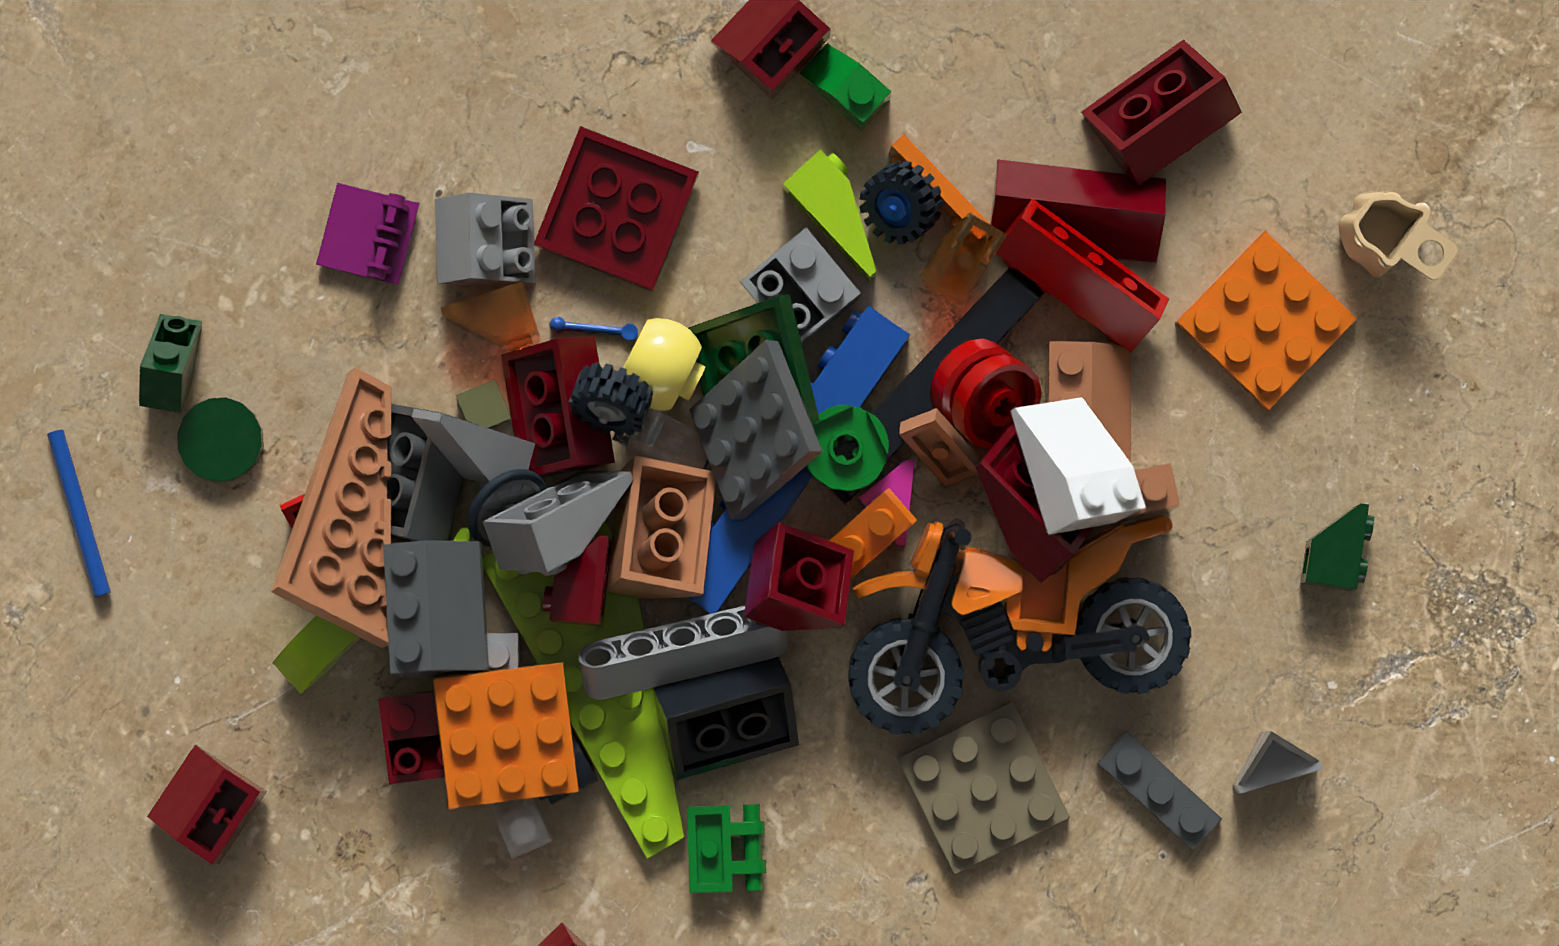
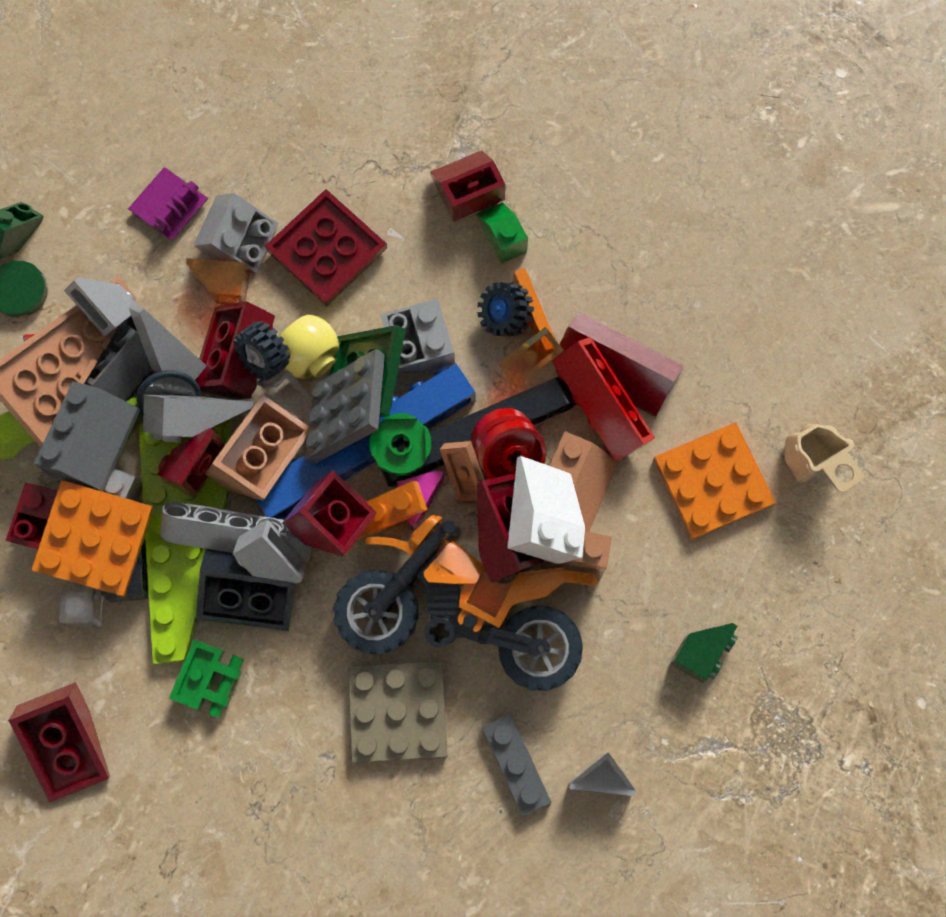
camera: 25 degrees right, 10 degrees down
(367, 422) = (101, 302): none -> light grey slope
(484, 405) = (189, 332): olive tile -> none
(628, 332) = (260, 303): blue hinge -> none
(743, 662) = (269, 554): none -> light grey slope
(829, 202) = (460, 292): lime slope -> none
(1162, 111) = (698, 323): dark red slope -> none

